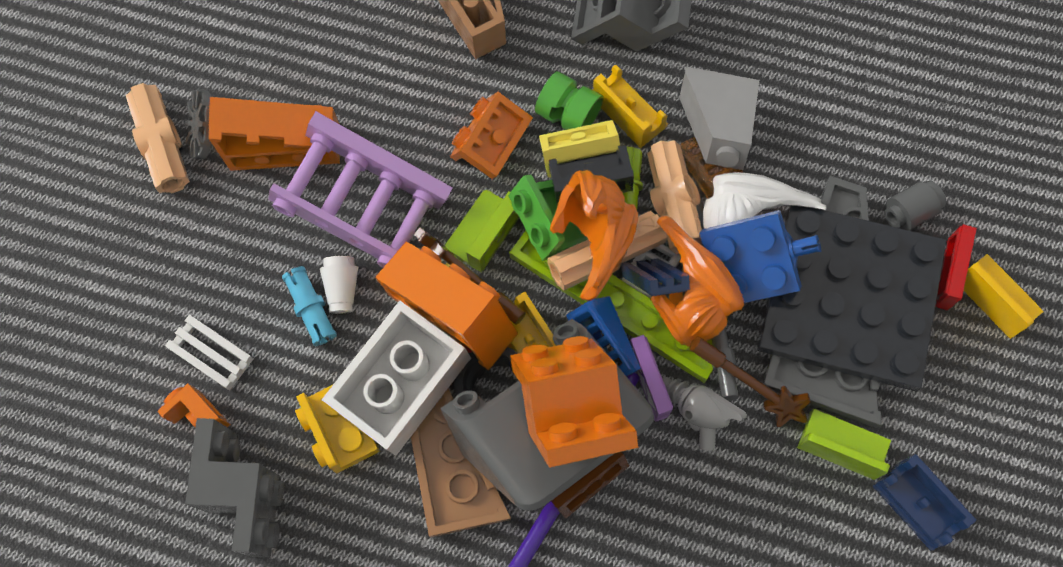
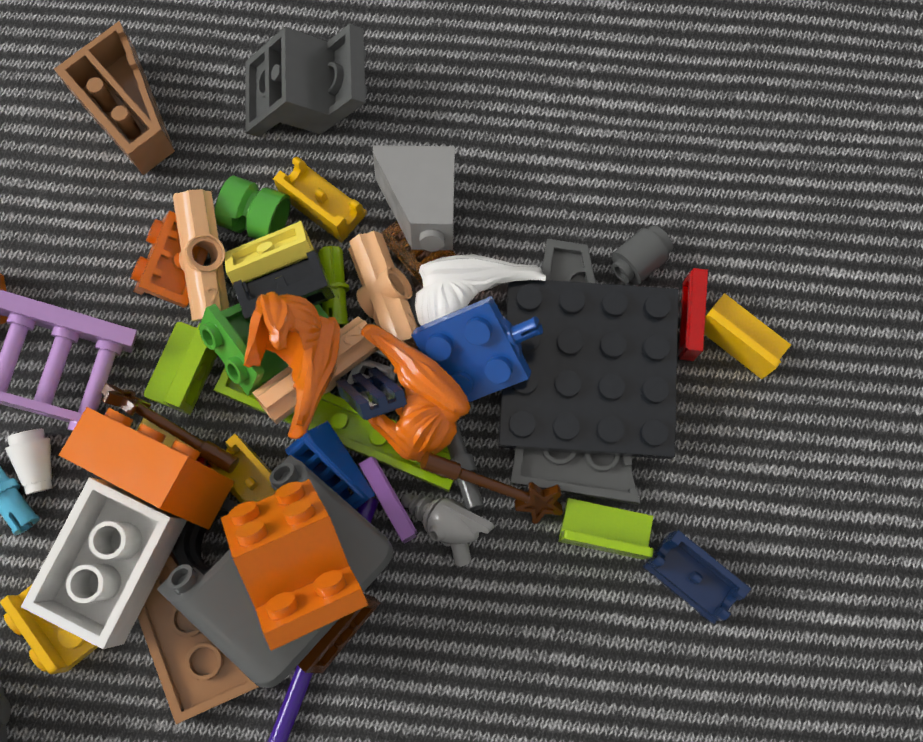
camera: 15 degrees left, 5 degrees up
(520, 112) = (199, 229): none -> light nougat piece

